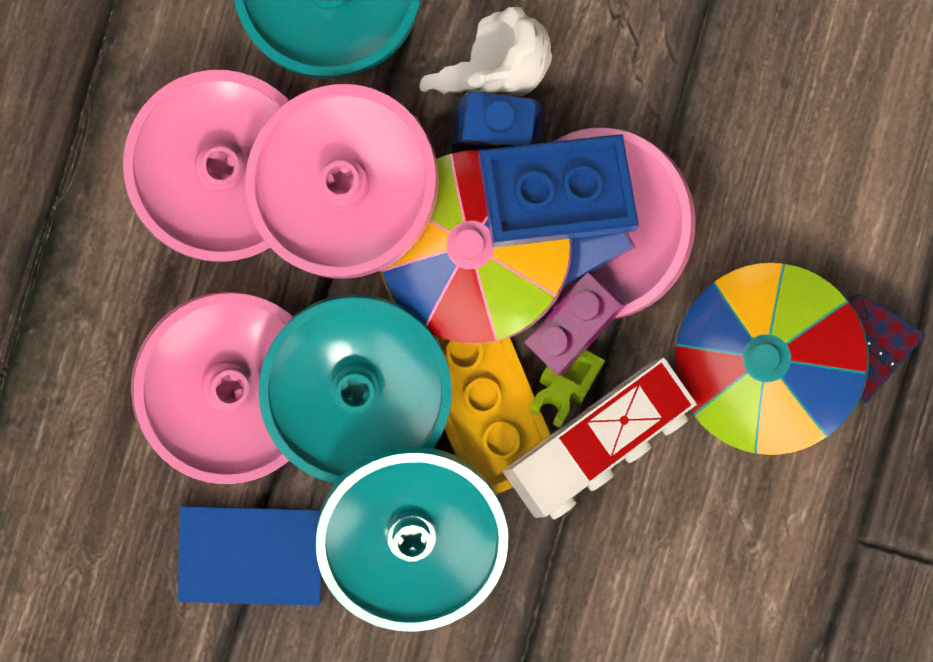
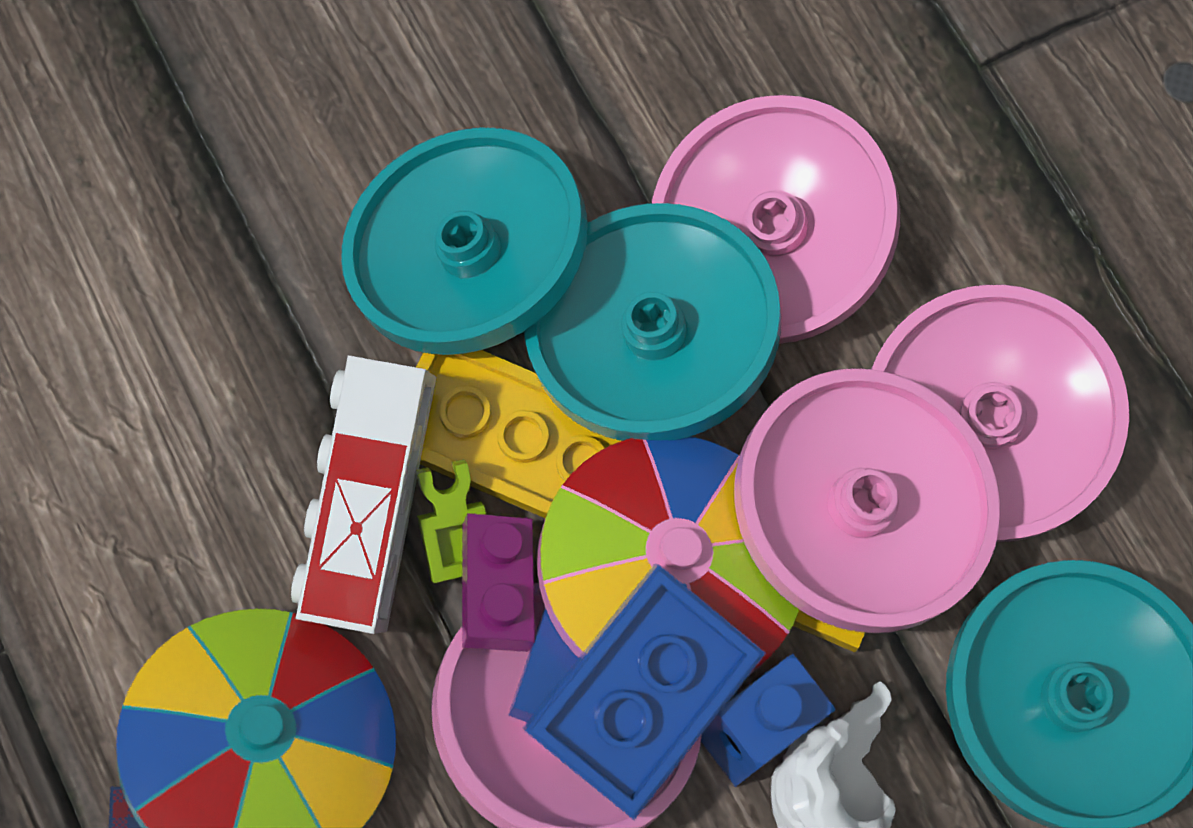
camera: 130 degrees right, 15 degrees down
(248, 556) = (606, 101): blue tile -> none

